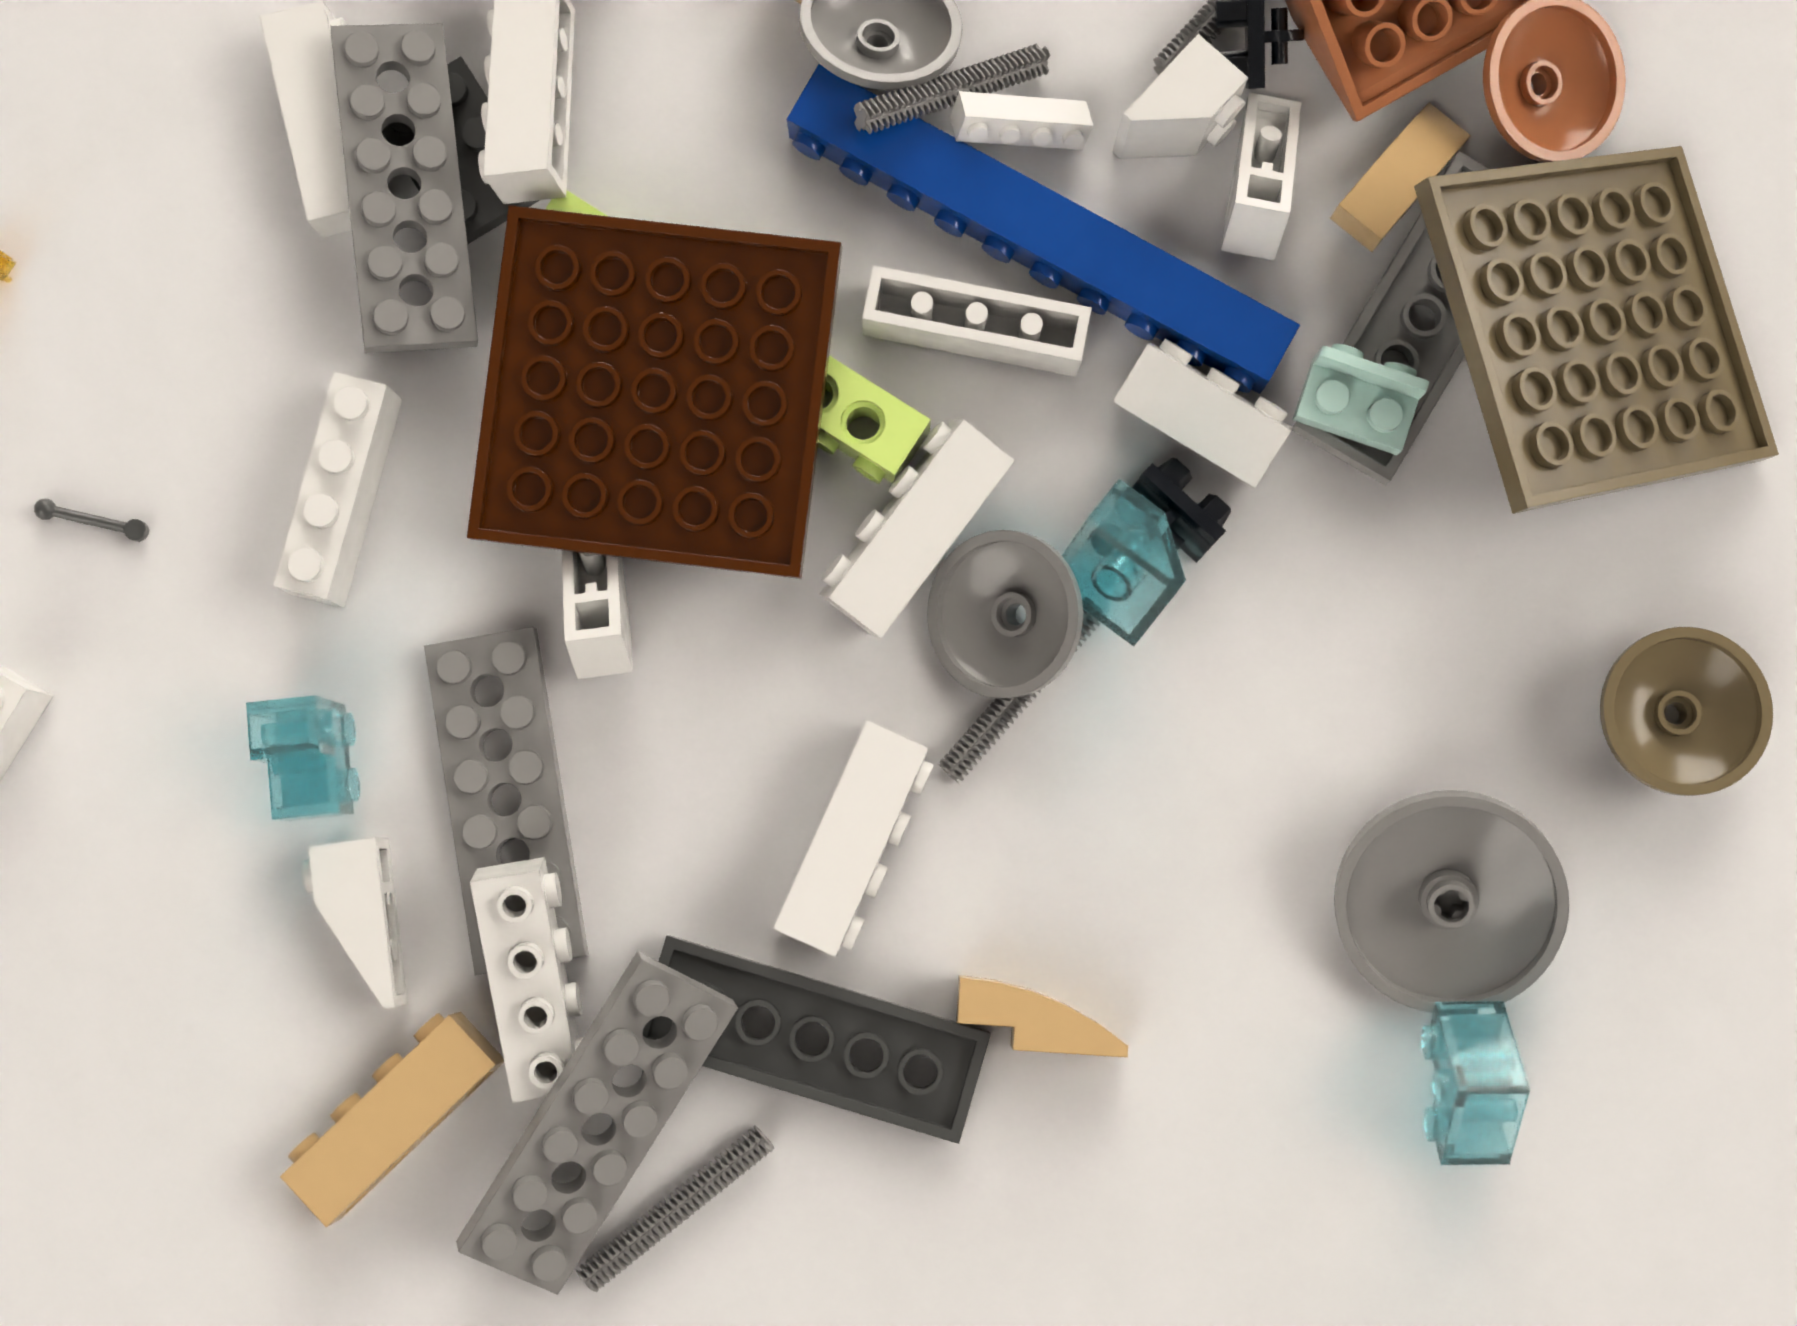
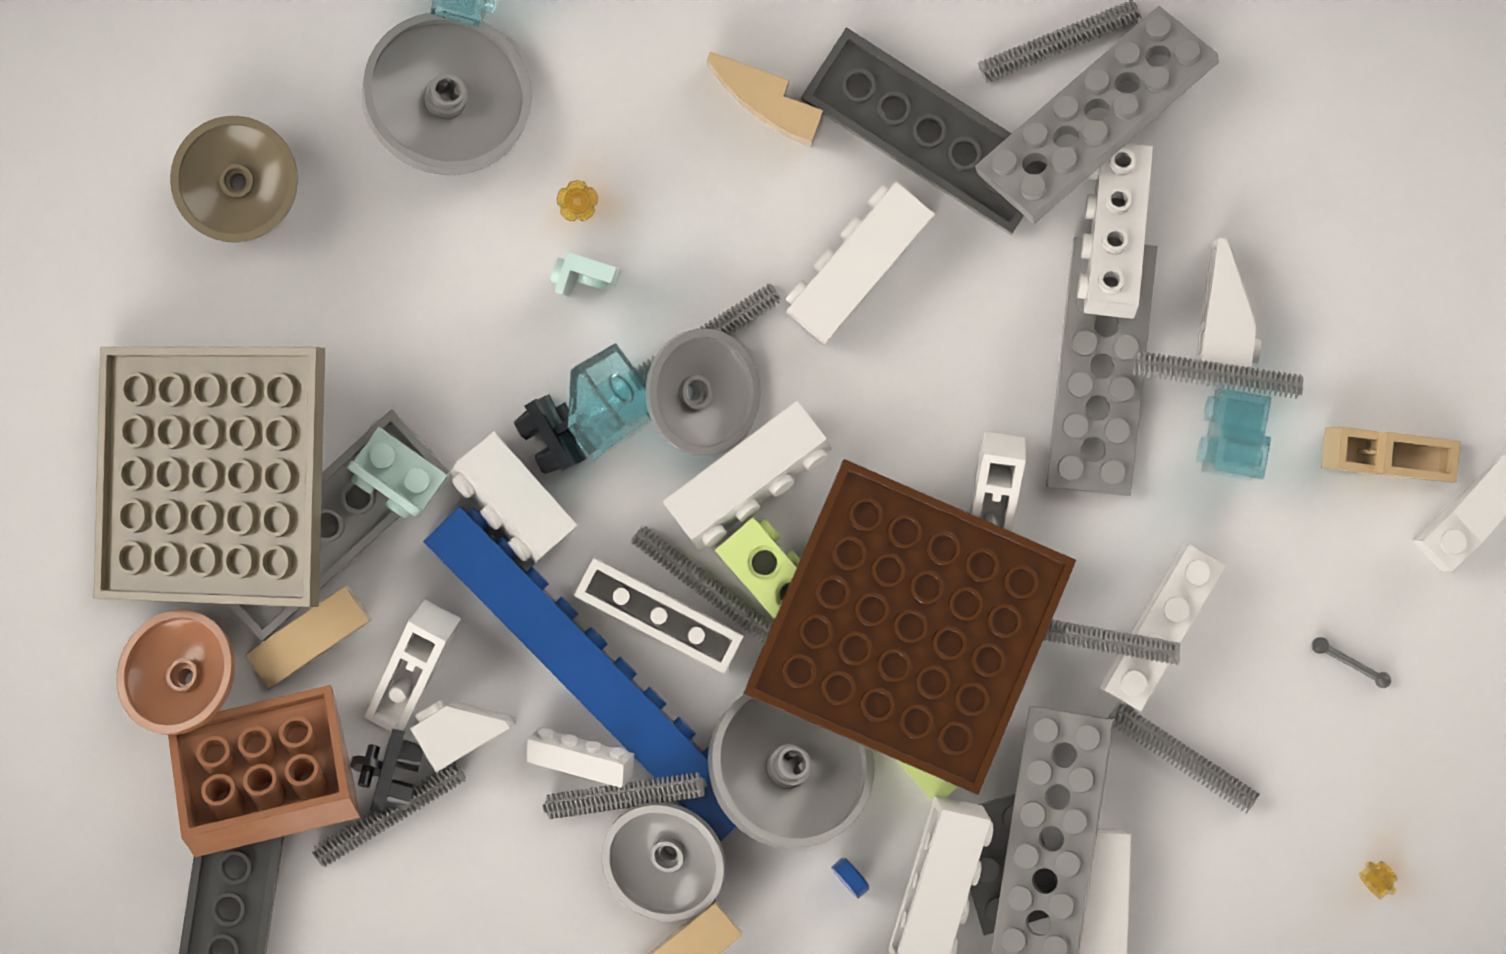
camera: 170 degrees left, 5 degrees up
(104, 793) = (1390, 454): none -> tan slope
(267, 341) = (1185, 756): none -> light grey axle
(347, 829) = (1219, 374): none -> light grey axle
(387, 445) = (1113, 641): none -> light grey axle
(392, 1118) = (1241, 162): tan brick -> none
(644, 77) = (850, 877): none -> blue tile
(759, 160) = (786, 776): none -> light grey dish
(933, 383) = (702, 582): none -> light grey axle
(1203, 722) = (590, 273): none -> light aqua bracket
(1250, 809) = (574, 190): none -> clear yellow plate

